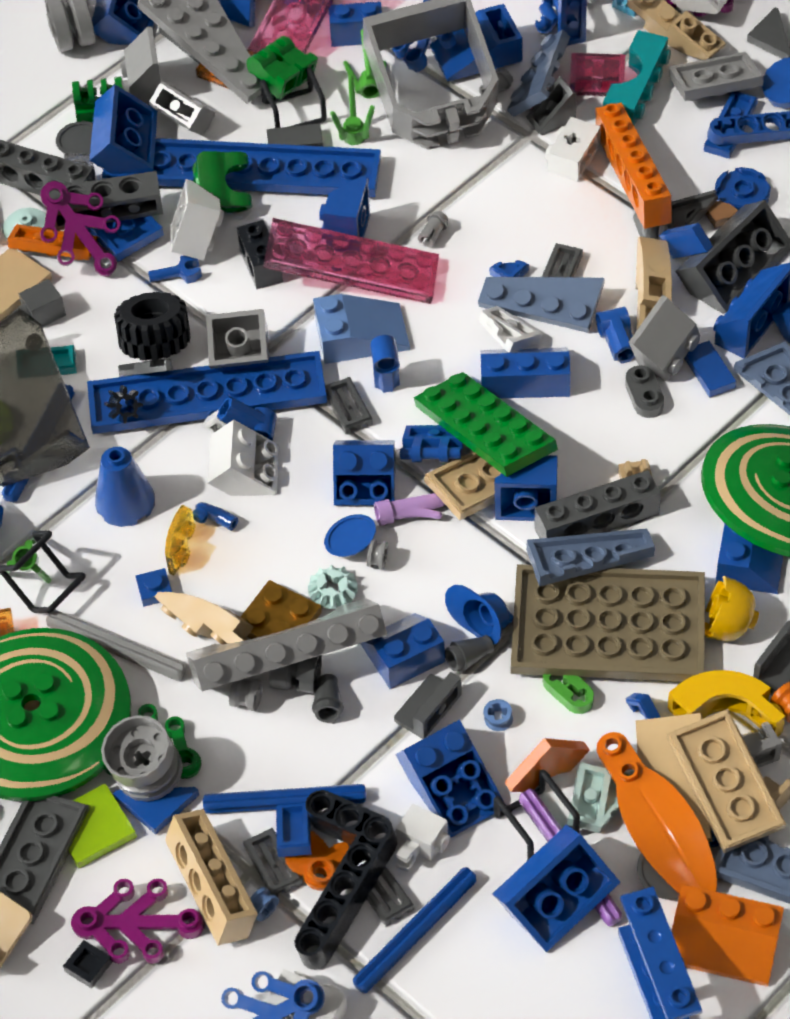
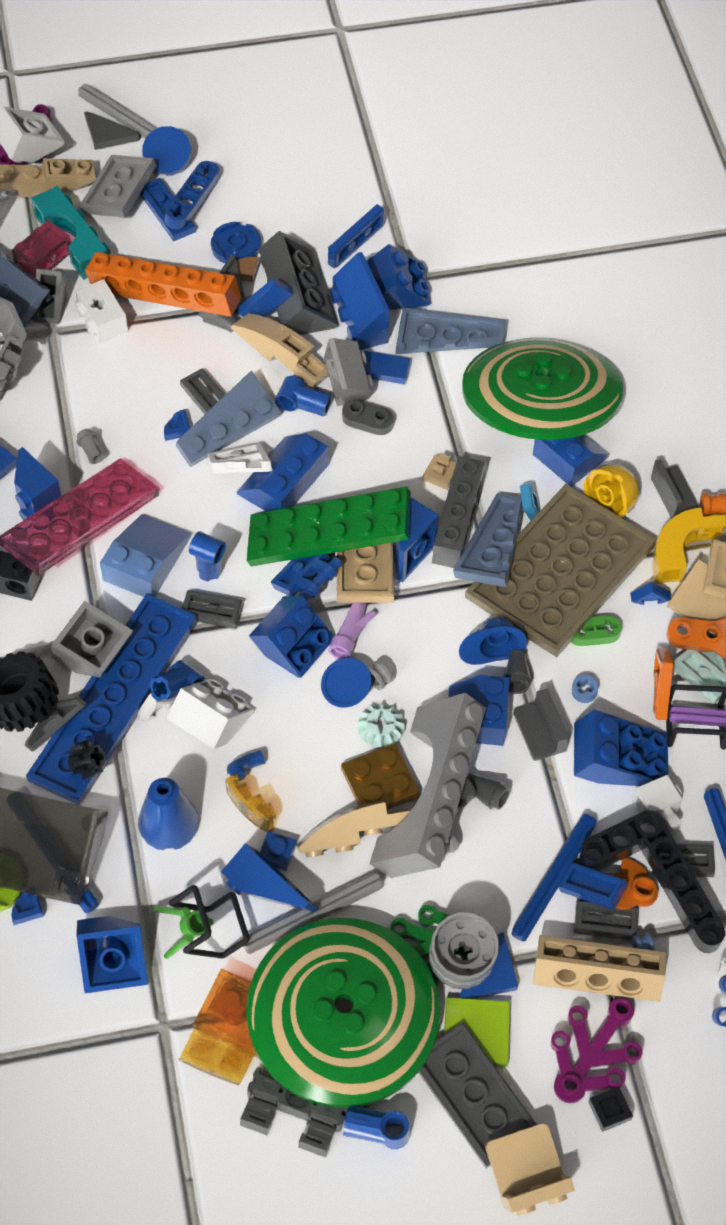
camera: 60 degrees left, 5 degrees up
(111, 588) = (259, 878): none -> blue slope
(659, 555) = (529, 501): none -> dark azure tile

